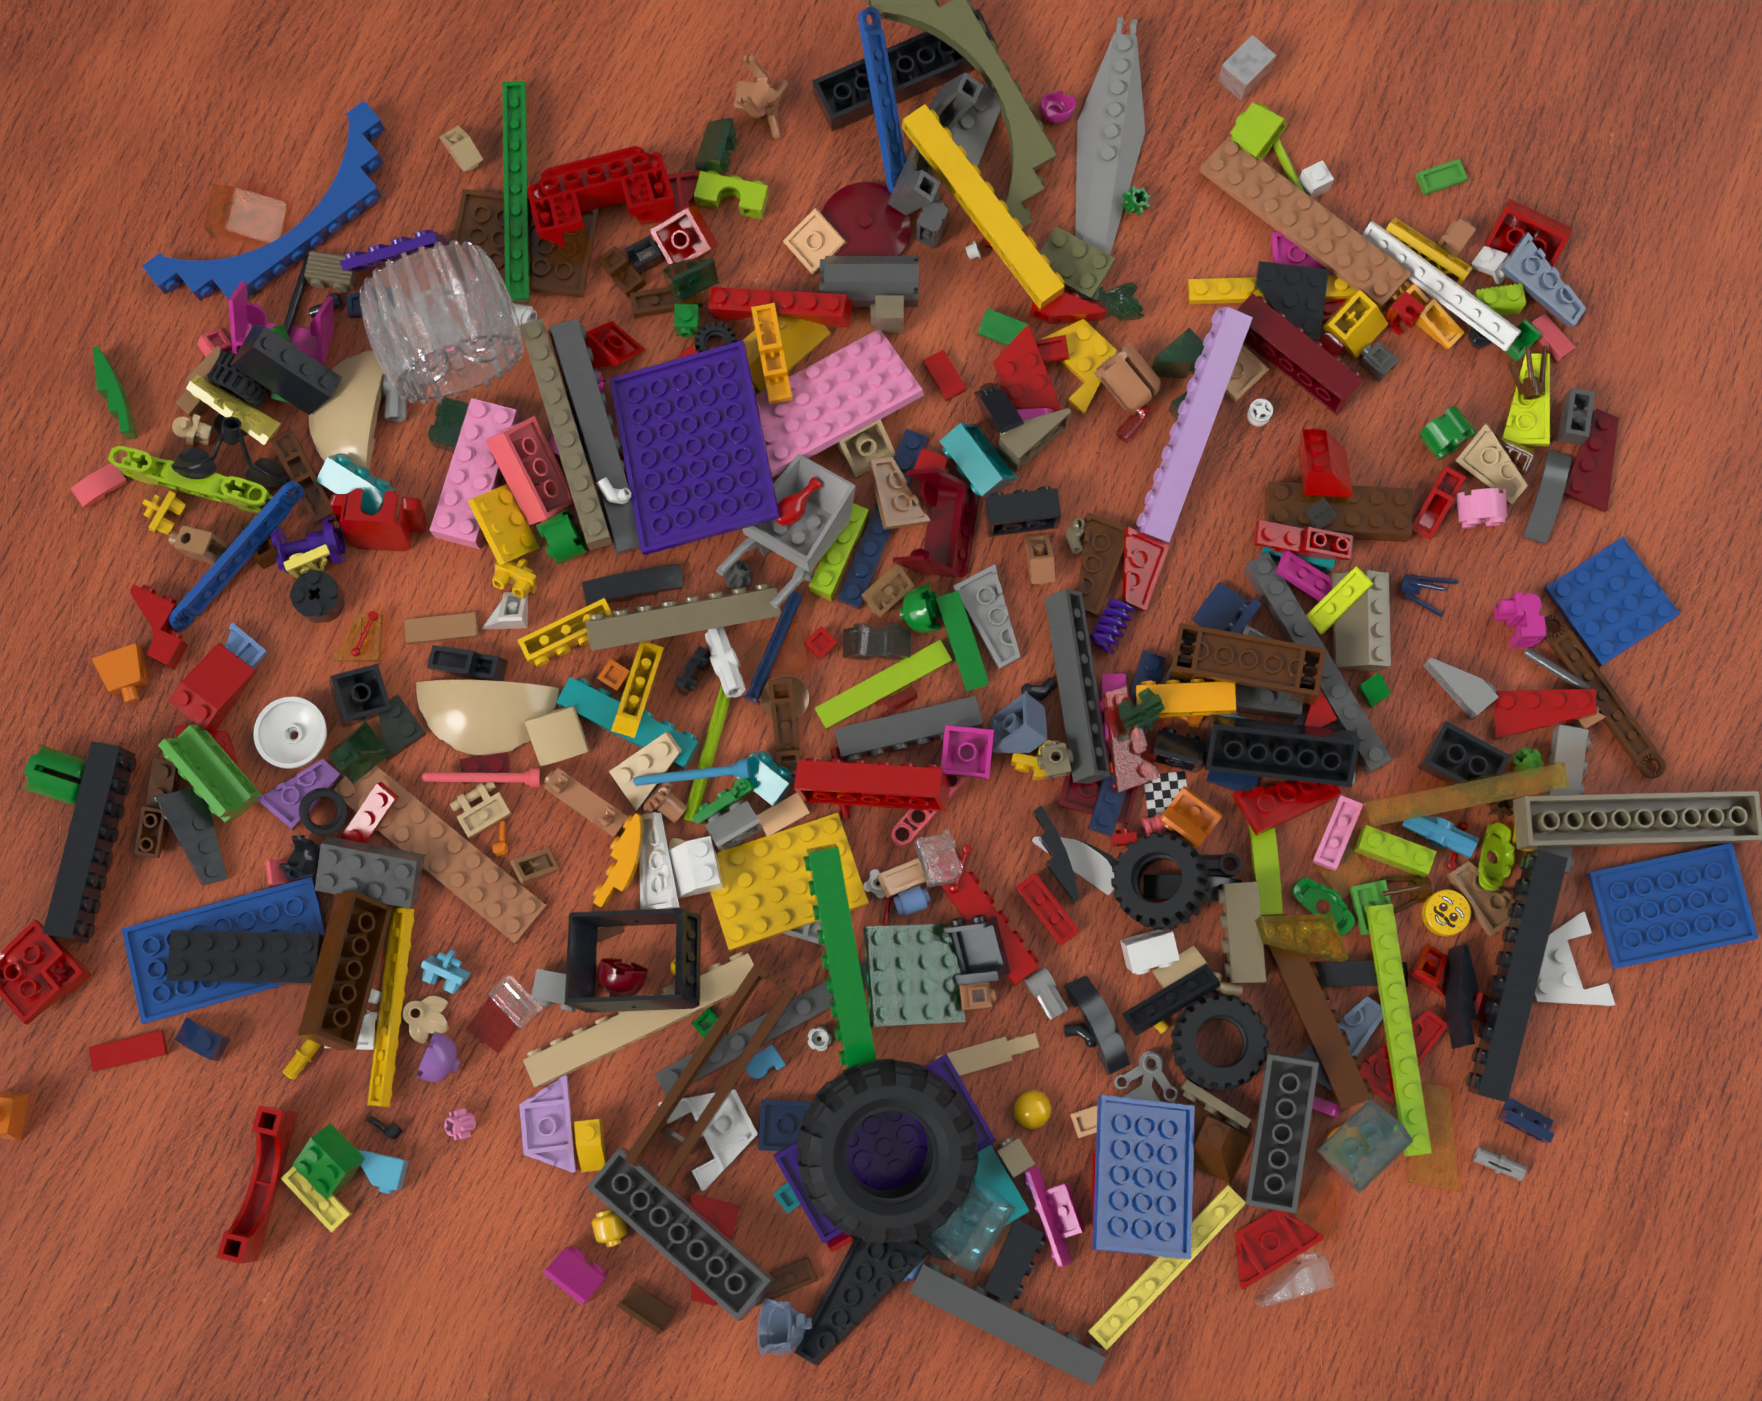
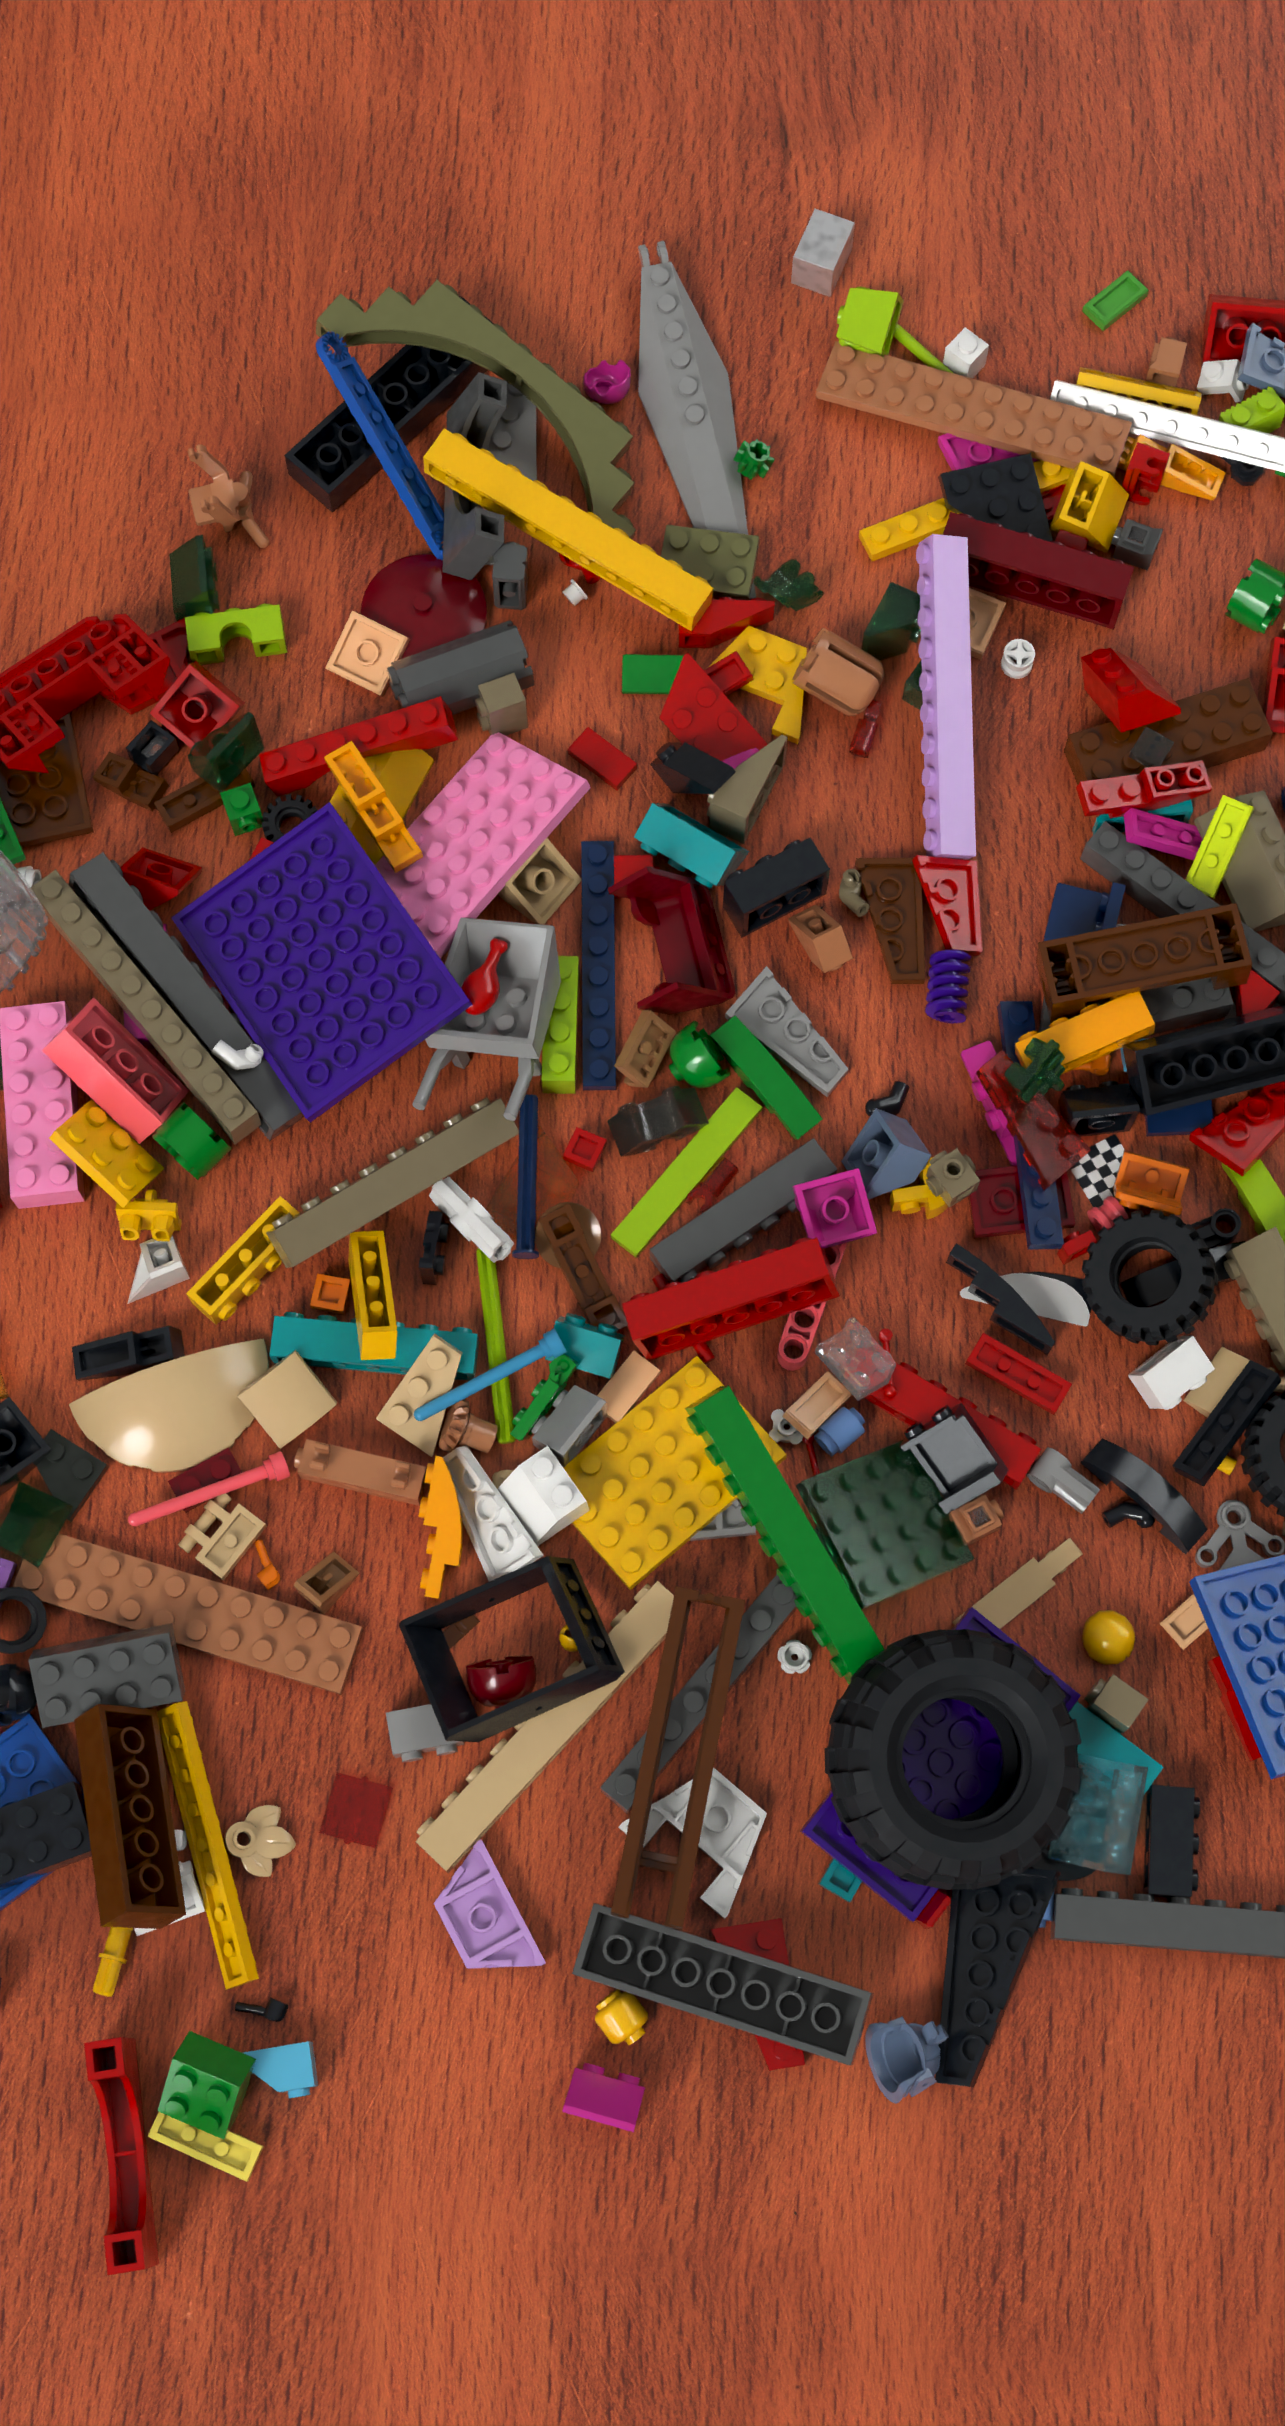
camera: 25 degrees left, 5 degrees down
(370, 814) = (78, 1598): plate -> none
(439, 1059) = (301, 1886): medium lavender cylinder -> none
(441, 628) = (74, 1321): medium nougat tile -> none
(446, 967) = (247, 1766): medium azure hips -> none
(460, 1124) = (364, 1962): bright pink gear -> none
(515, 1001) = (371, 1770): clear slope -> none
(590, 1144) = (551, 1919): yellow slope -> none
(633, 584) = (308, 1167): black slope -> none
(646, 1308) = (715, 2105): reddish brown panel -> none
(705, 1022) = (638, 1696): green slope -> none
(738, 575) = (442, 1104): dark grey gear -> none
(764, 1062) = (736, 1714): dark azure leg -> none
(780, 1123) = (793, 1786): dark blue plate -> none
(790, 1279) = (890, 1986): reddish brown tile -> none
(894, 499) = (603, 930): medium nougat wing -> none
(1057, 1213) = (1200, 1756): dark pink bracket -> none
(1077, 686) = (938, 1075): dark grey brick -> none

